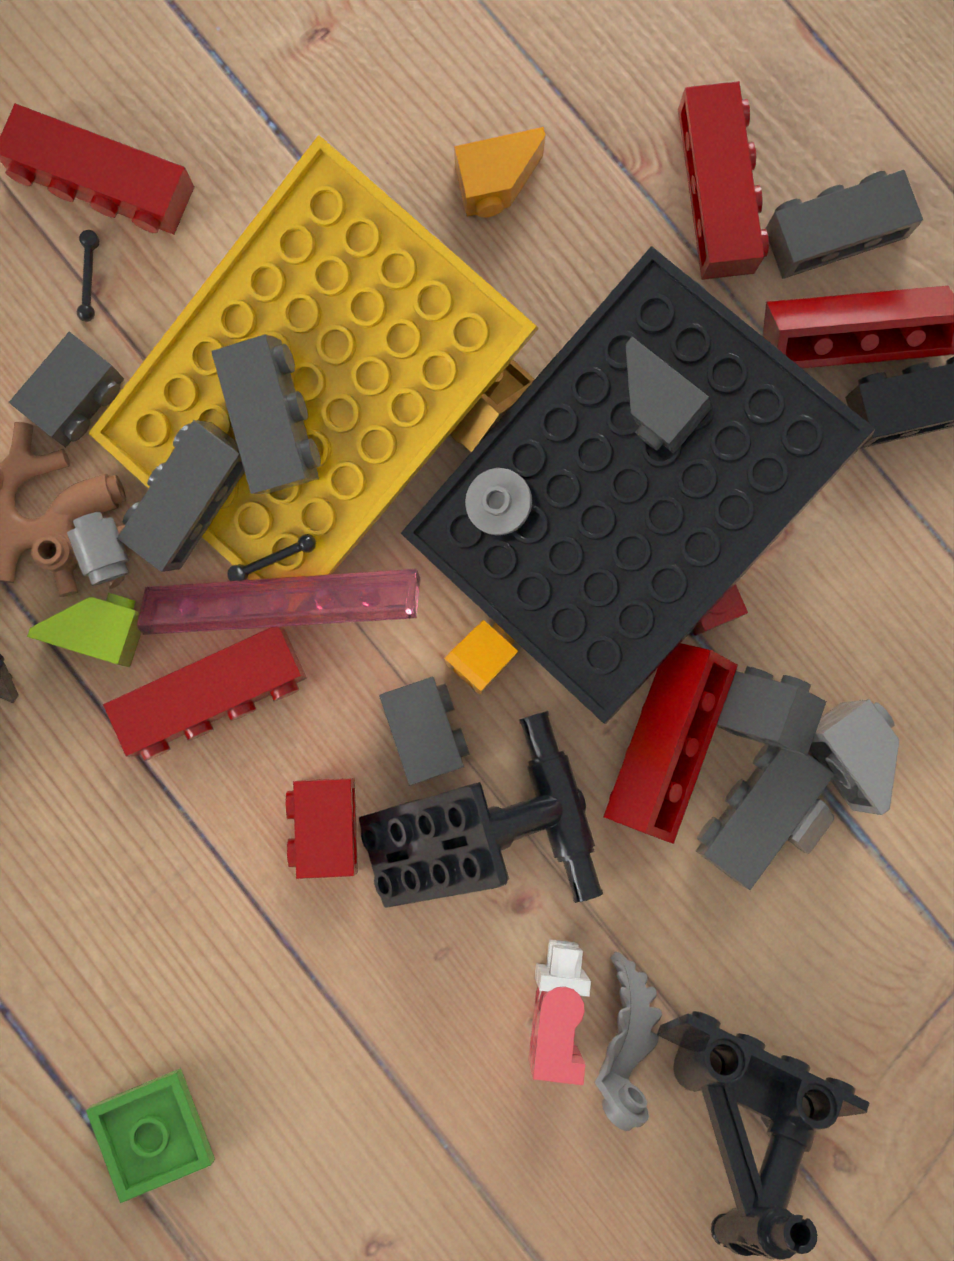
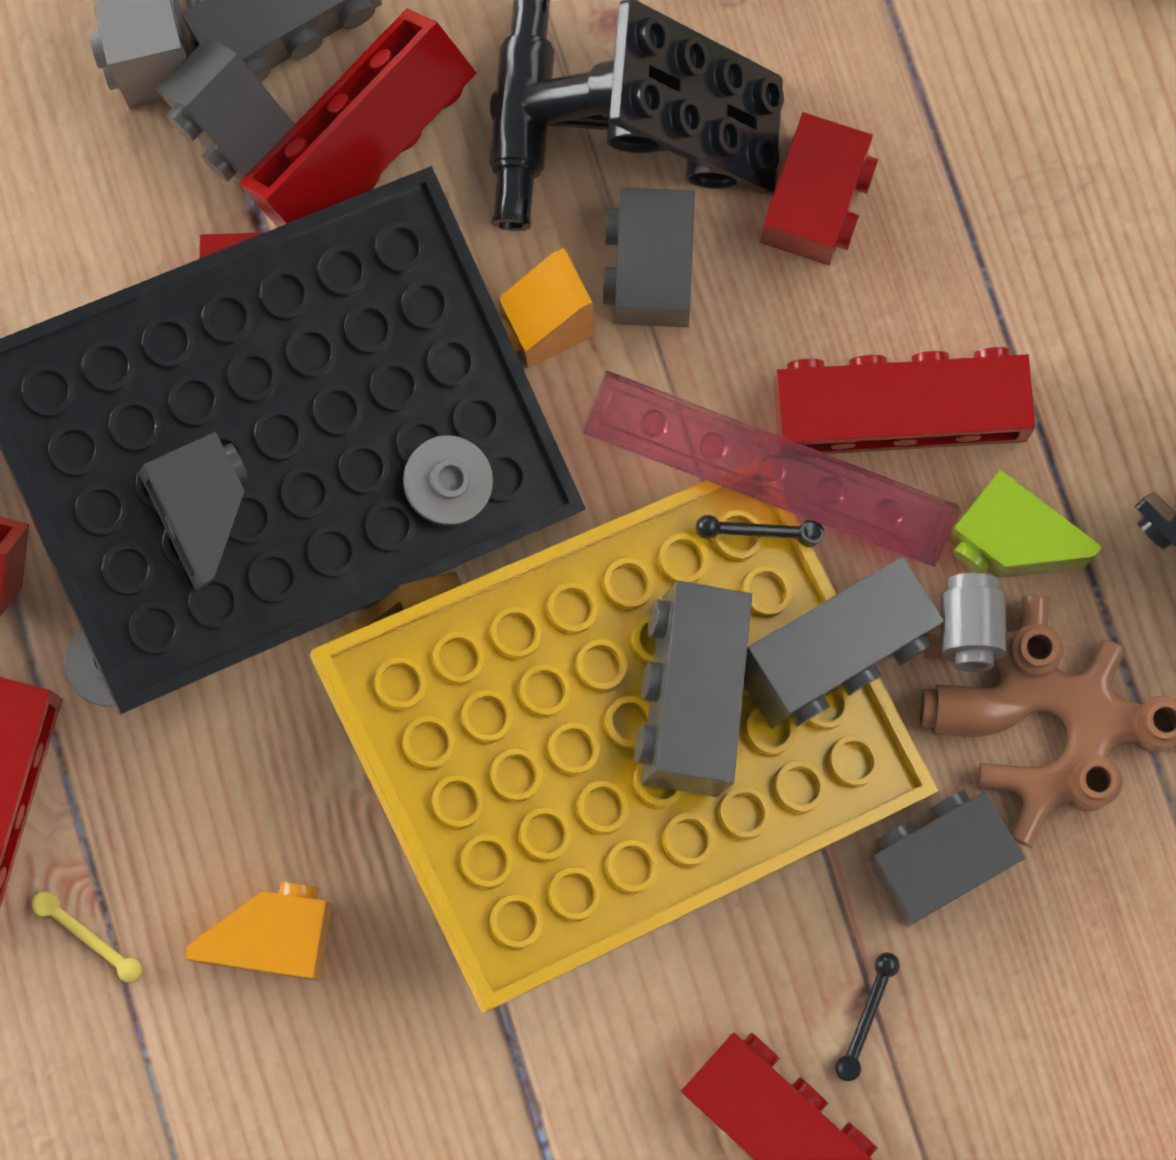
camera: 150 degrees left, 5 degrees down
(650, 144) = (48, 905): none -> light yellow hinge

